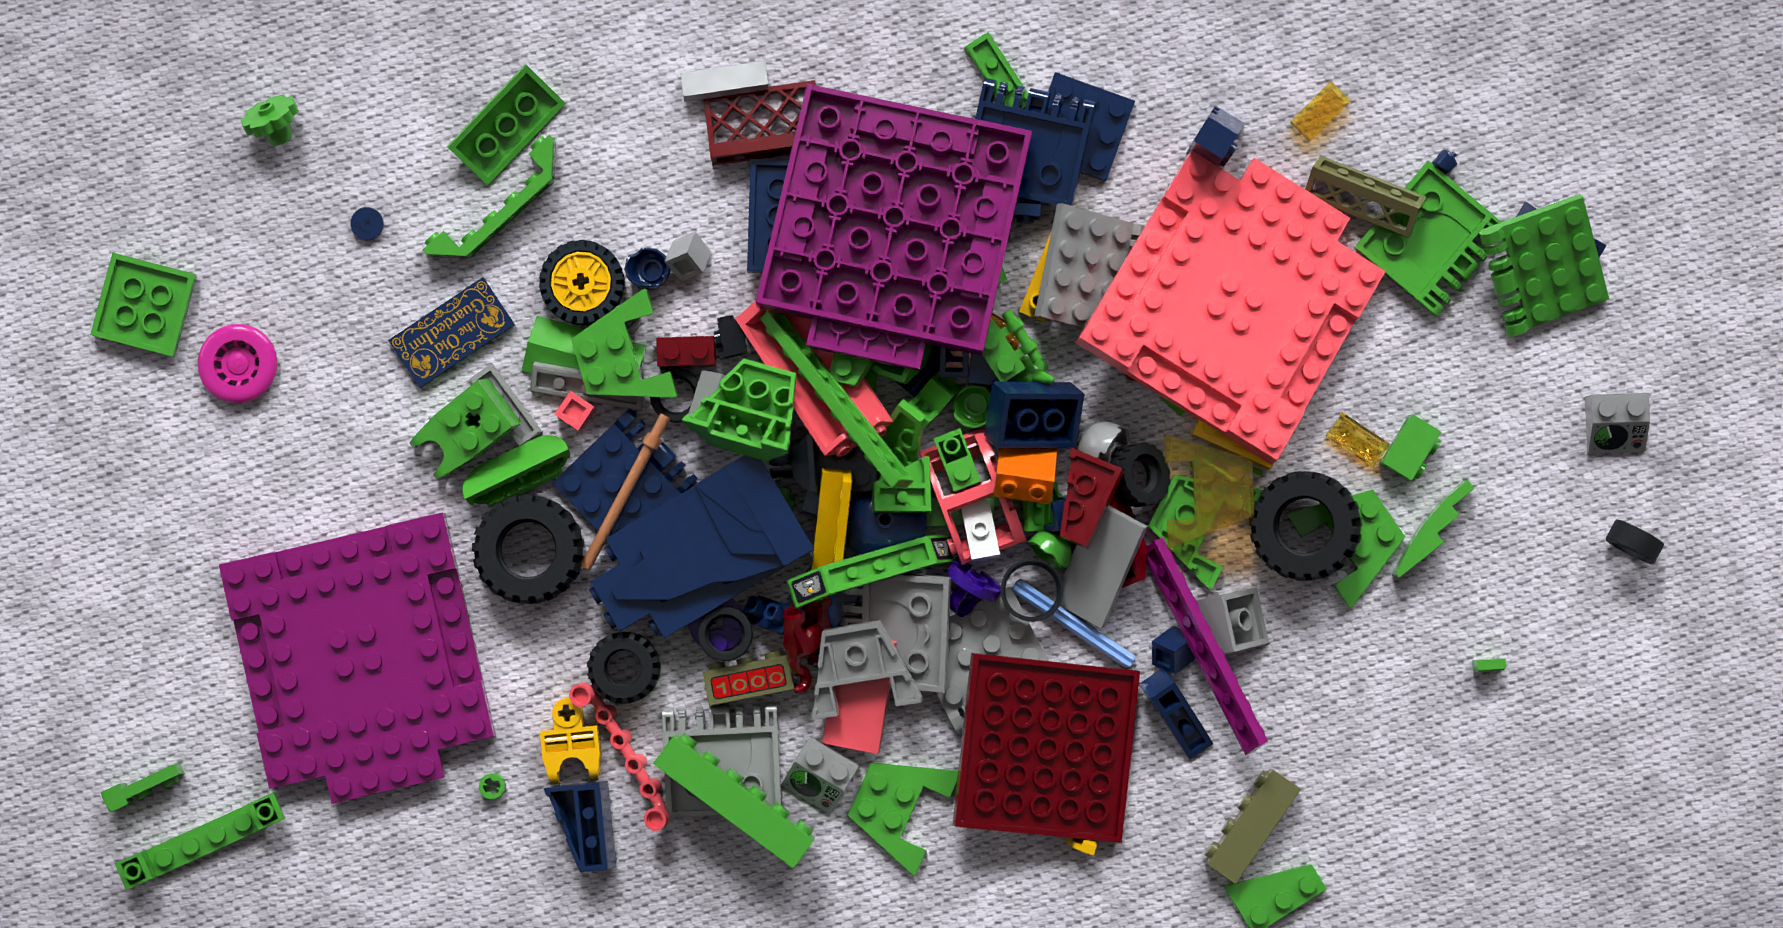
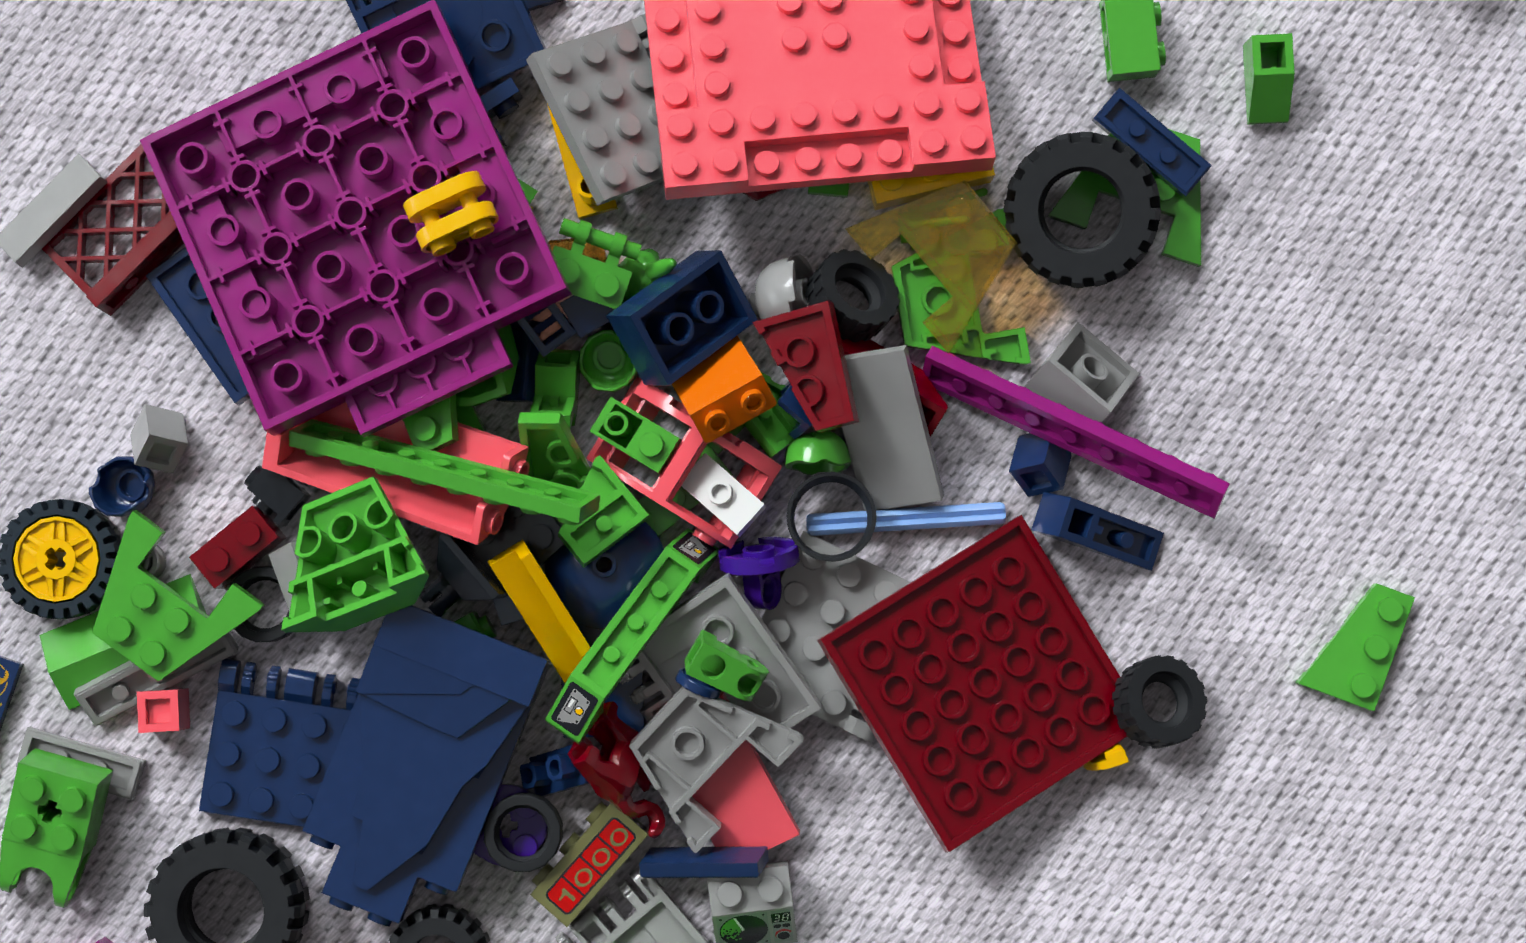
camera: 40 degrees left, 0 degrees up
(516, 471) = (148, 828): bright green brick -> none
(651, 442) = (274, 679): nougat bar -> none
(813, 729) = (706, 863): none -> dark blue tile
(887, 625) = (696, 686): none -> dark blue piece
(888, 800) = (851, 876): bright green wing -> none
(908, 628) = (724, 667): none -> bright green leg
(936, 269) = (472, 221): none -> yellow brick
(1158, 835) = (1188, 694): none -> black tyre
(1252, 825) = (1277, 591): olive brick -> none
(1357, 439) = (1064, 71): clear yellow plate -> none
(1375, 518) = (1157, 145): none -> dark blue tile
(1426, 537) = (1223, 121): bright green slope -> none
(1470, 532) = (1268, 78): none -> bright green slope
(1489, 665) = (1402, 210): bright green tile -> none

